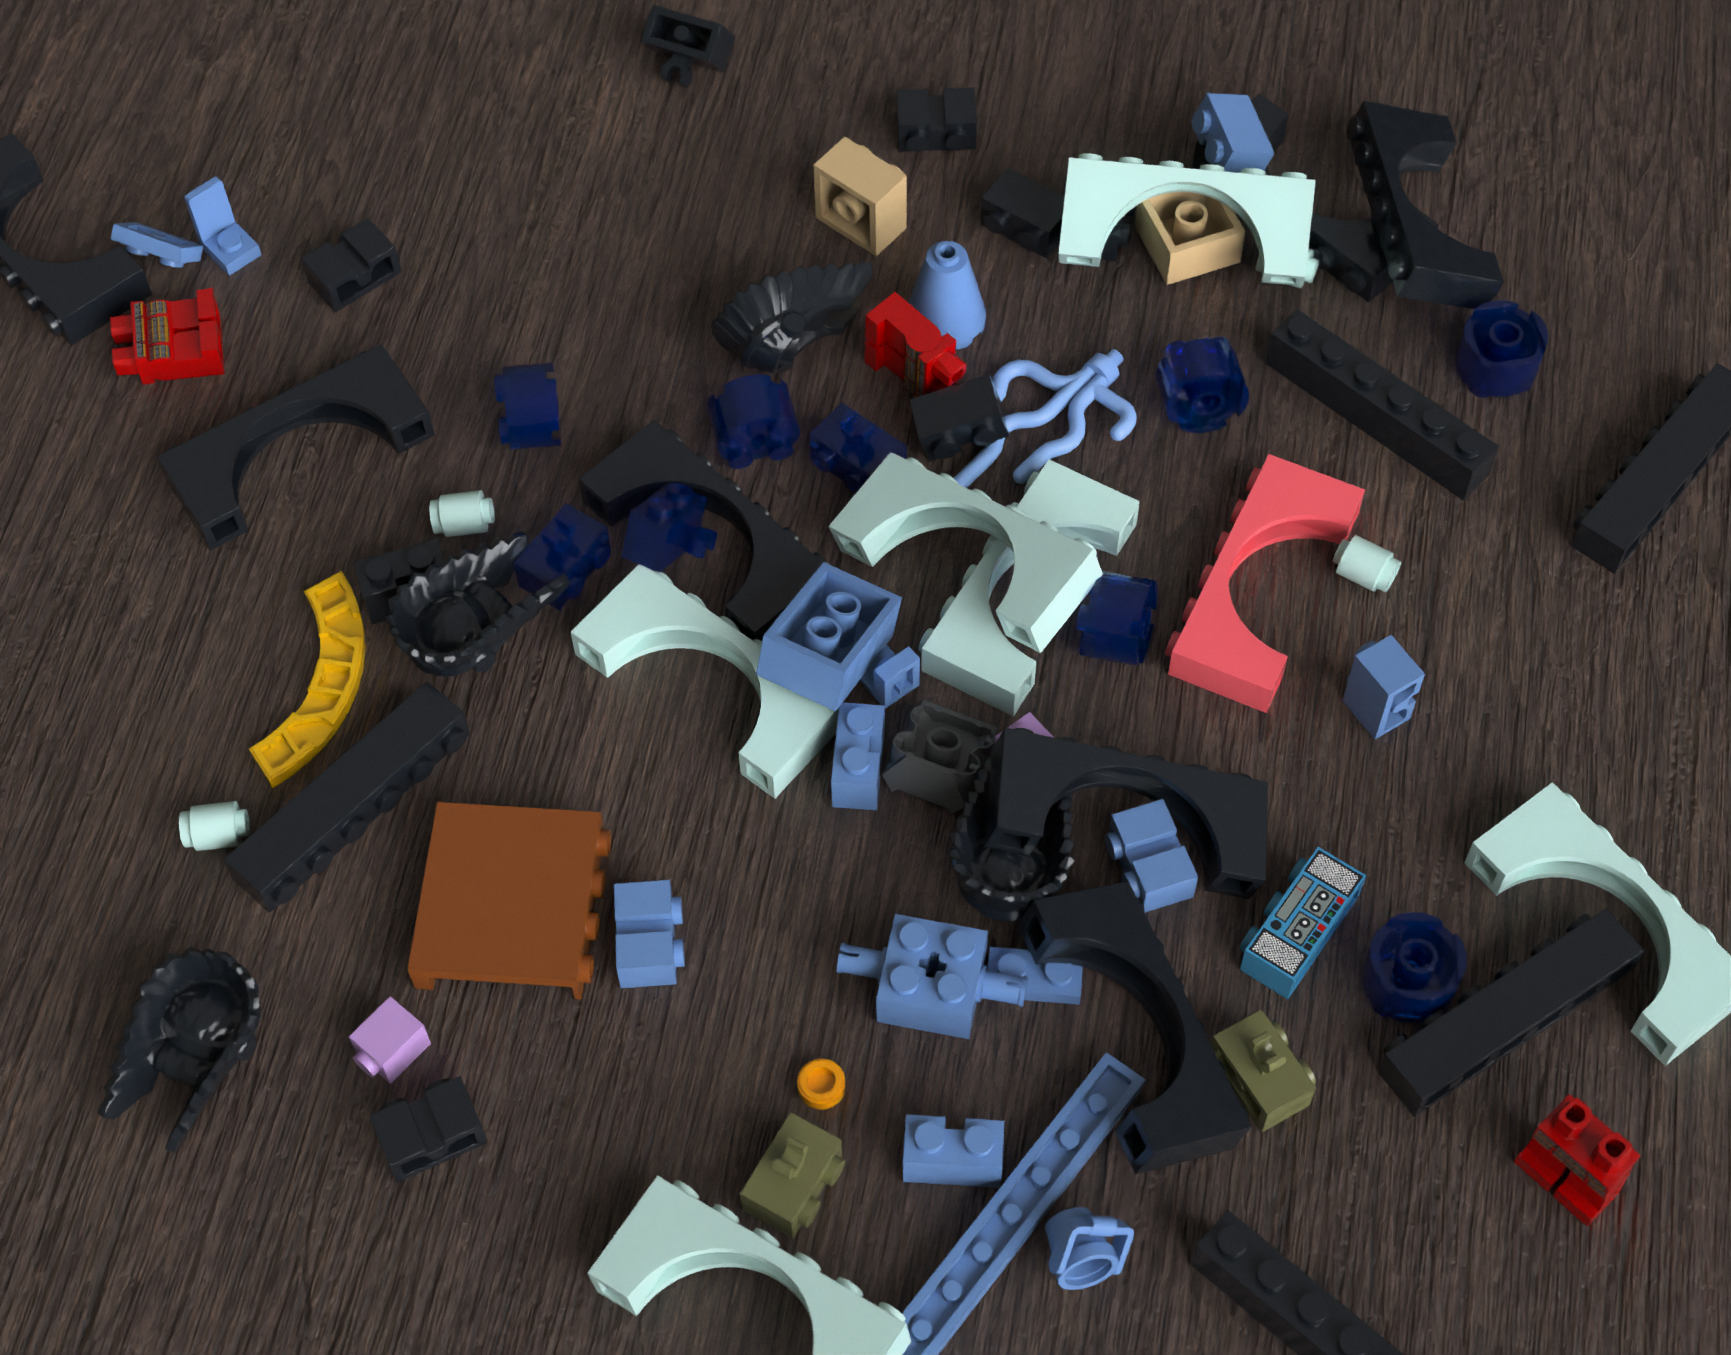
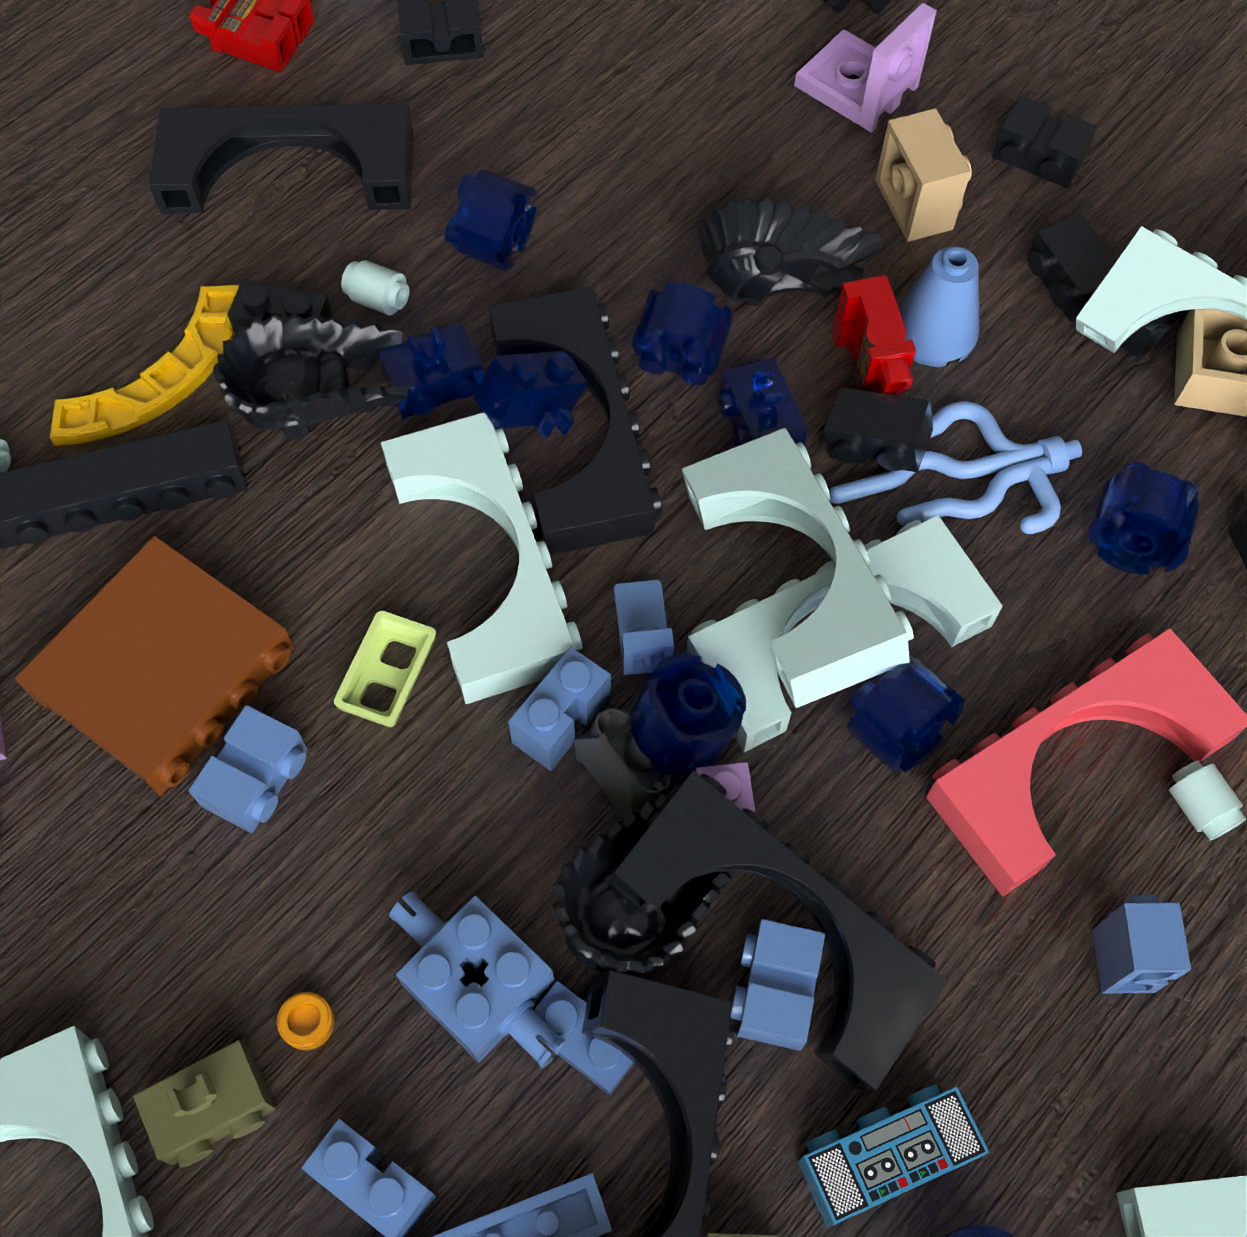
camera: 30 degrees right, 5 degrees up
(717, 807) = (369, 669): none -> yellowish green piece
(768, 127) = (881, 70): none -> lavender bracket
(828, 636) = (599, 575): medium blue brick -> none
(962, 702) = (686, 714): none -> clear blue brick

